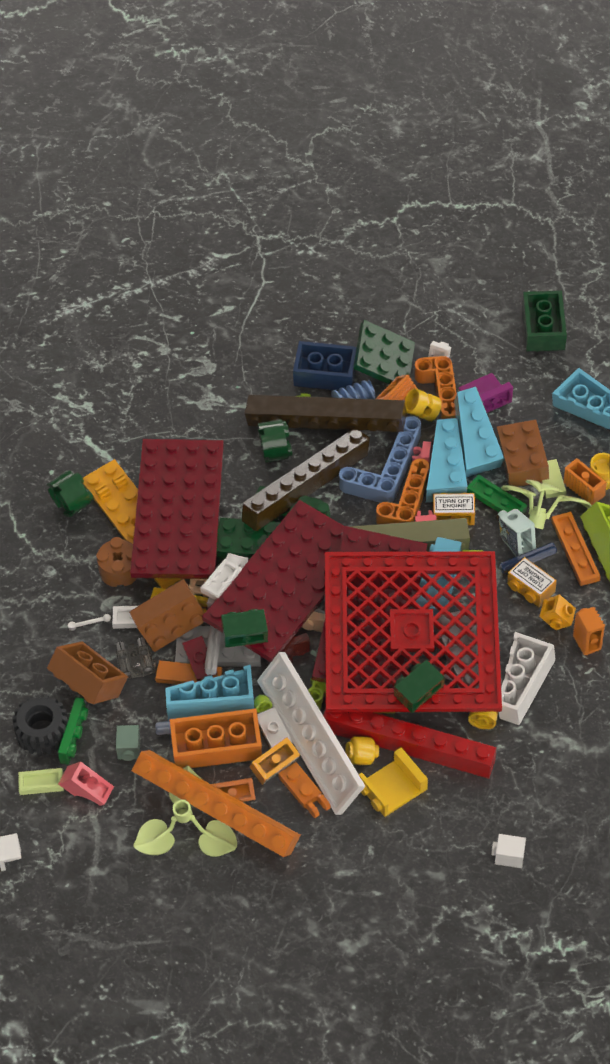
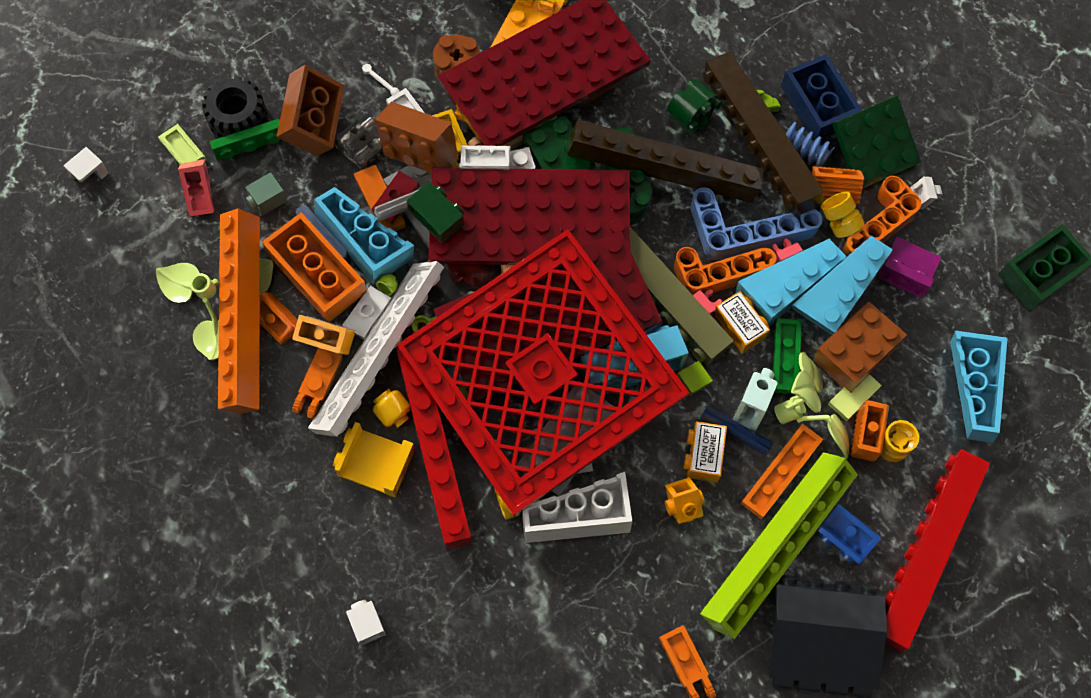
camera: 50 degrees right, 15 degrees up
(418, 685) = (475, 416): dark green brick -> none
(588, 630) = (681, 545): orange brick -> none

